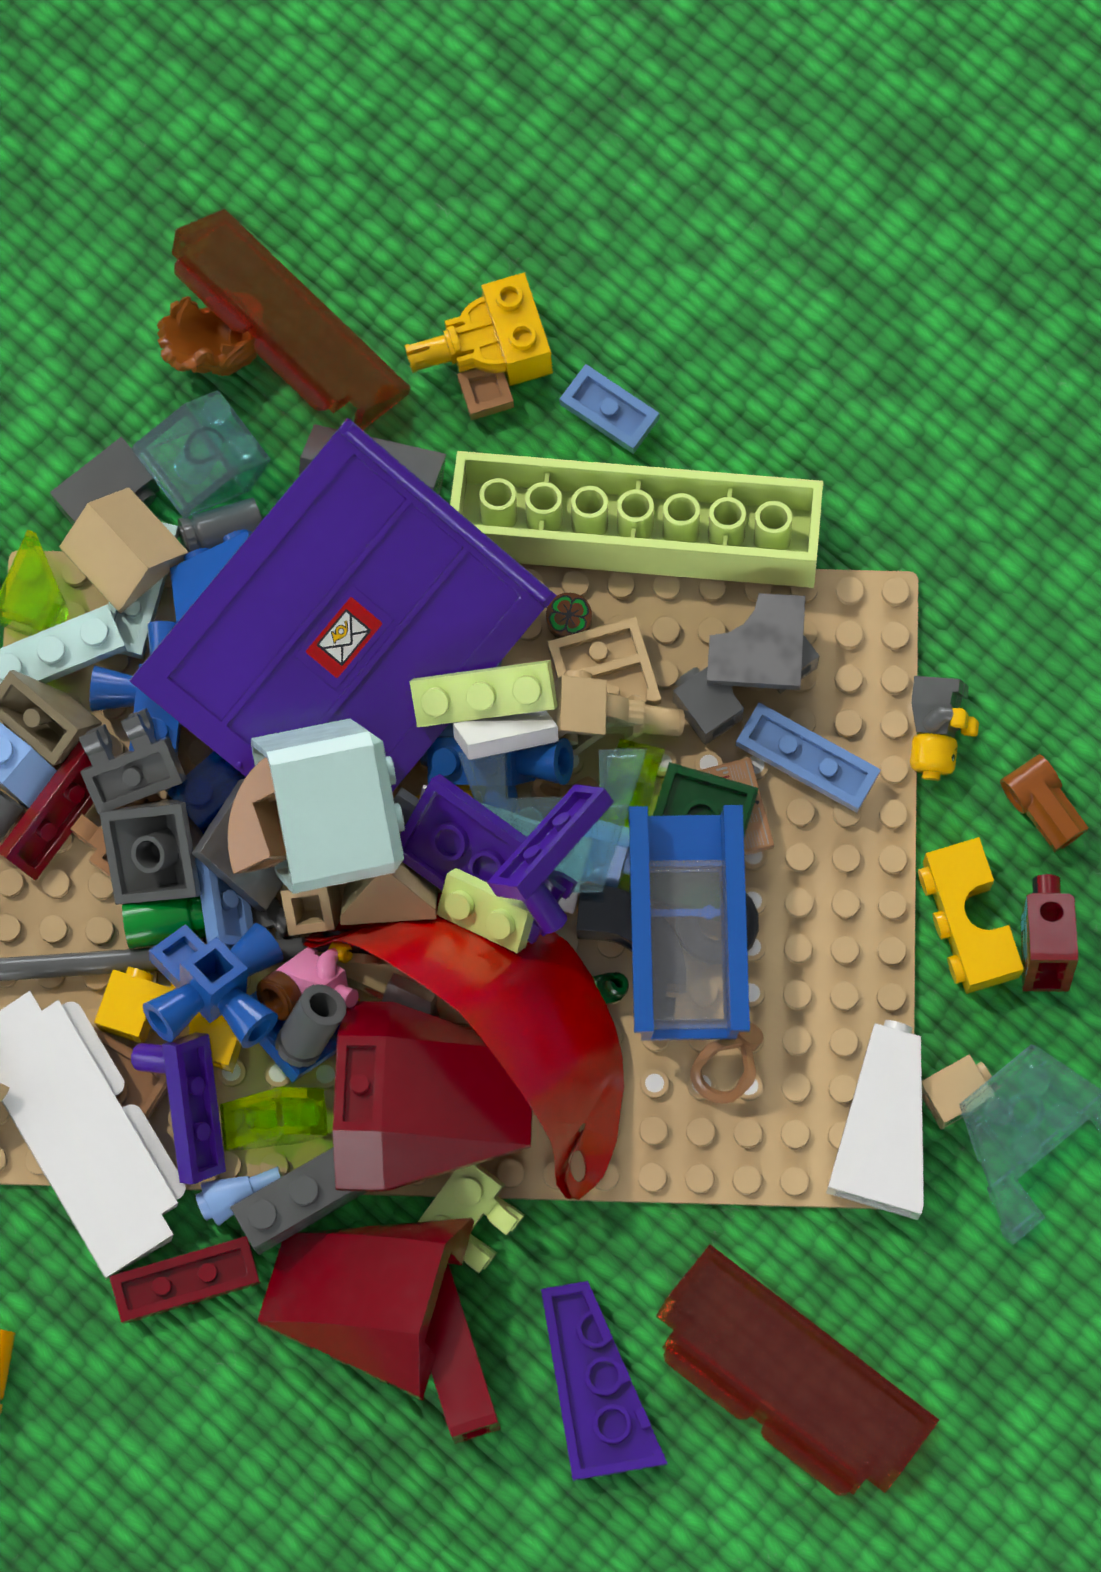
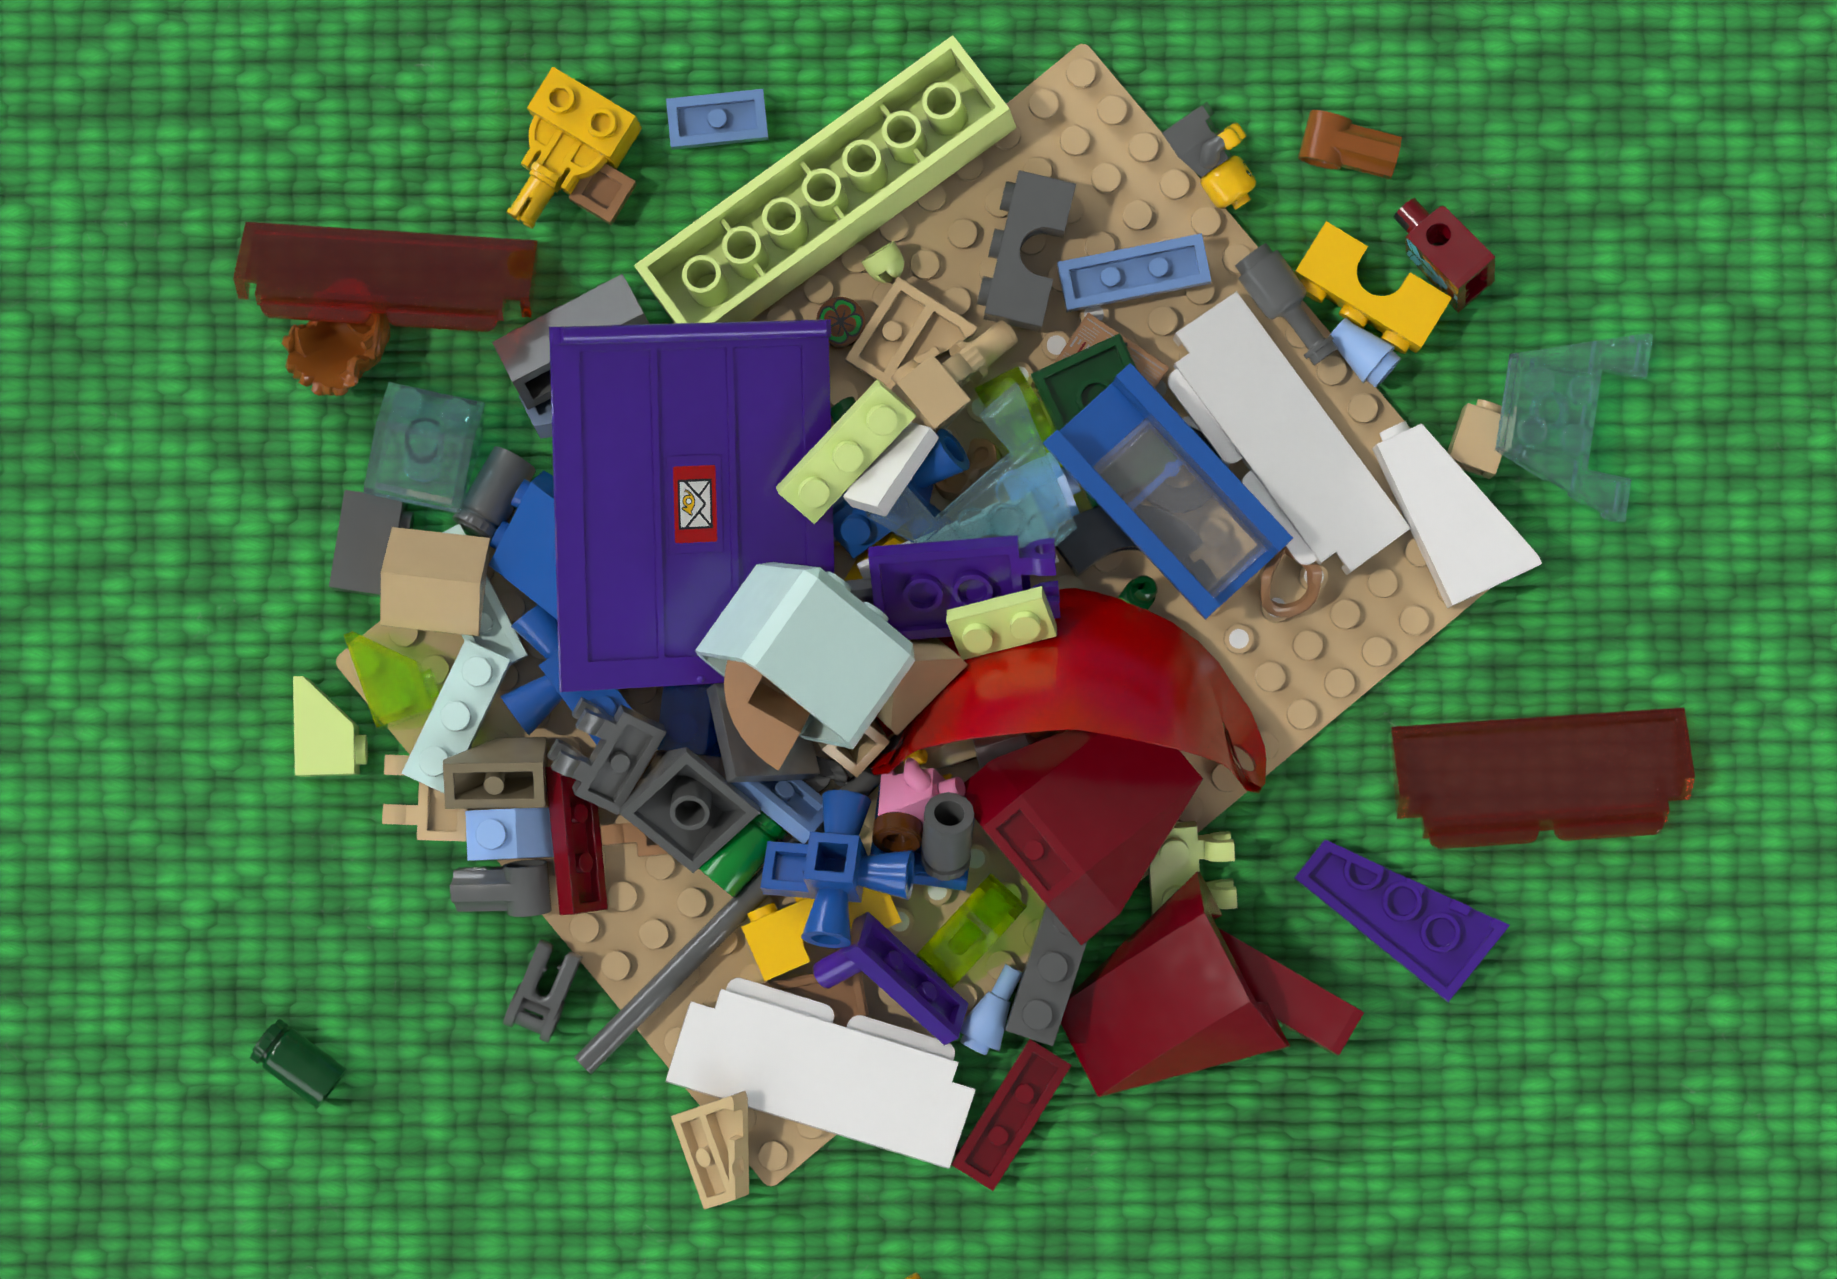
camera: 50 degrees left, 10 degrees up
(544, 849) = (1017, 536): dark purple piece -> none
(636, 601) = (885, 263): none -> yellowish green hinge
(763, 649) = (1029, 216): flat silver tile -> none
(808, 990) = (1298, 460): none -> white slope
(899, 860) = (1280, 294): none -> dark grey piece
(927, 960) = (1364, 352): none -> light blue cone

